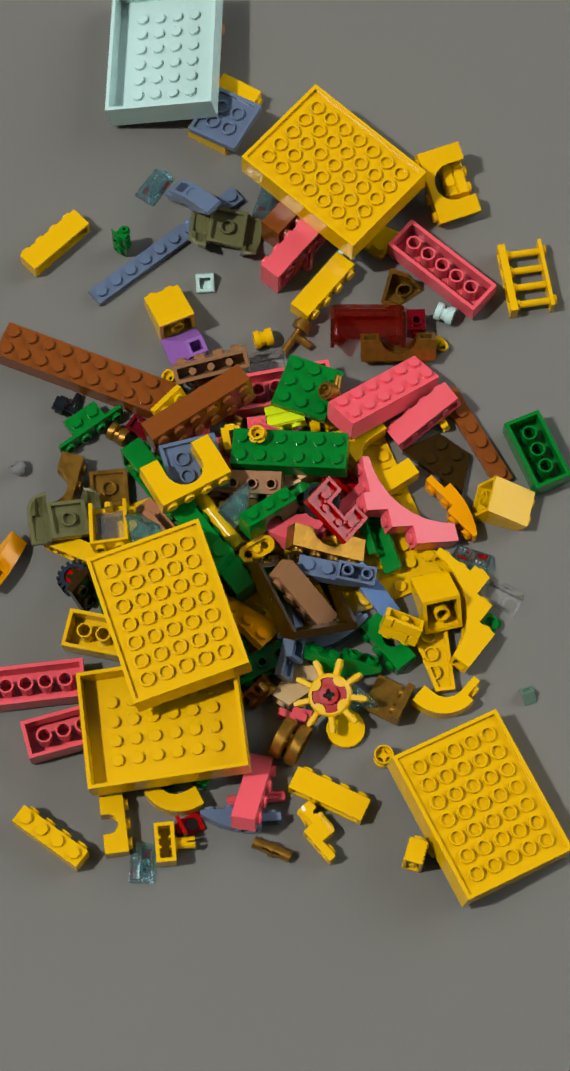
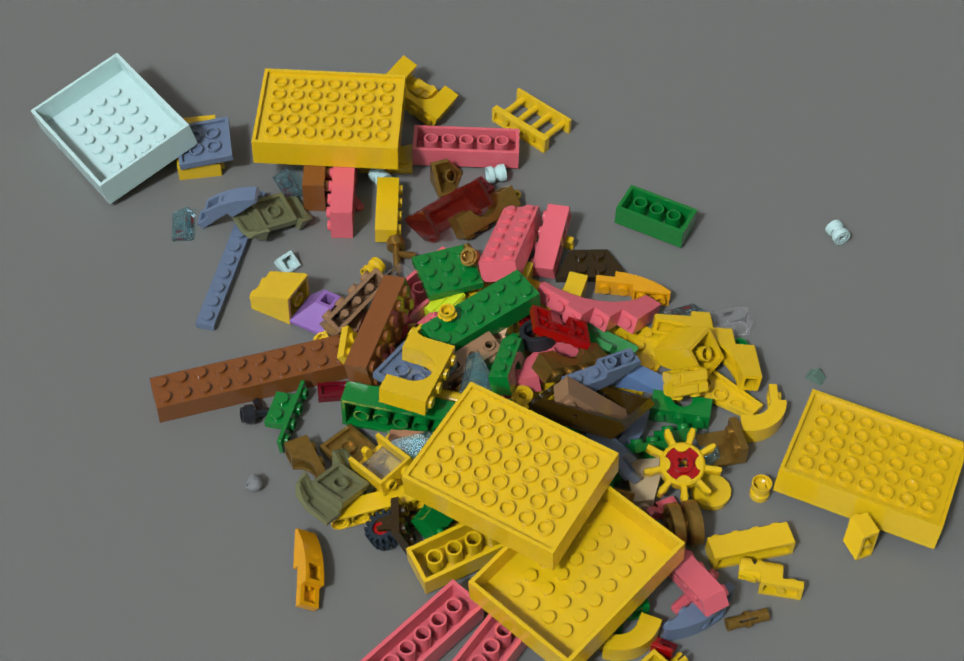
camera: 40 degrees left, 20 degrees down
(54, 243) = (134, 307): yellow brick -> none
(118, 434) = (318, 404): pearl gold wheel -> none
(121, 240) = (193, 269): green hinge -> none
(478, 440) = (610, 240): dark orange plate -> none
(503, 504) = (666, 262): yellow slope -> none

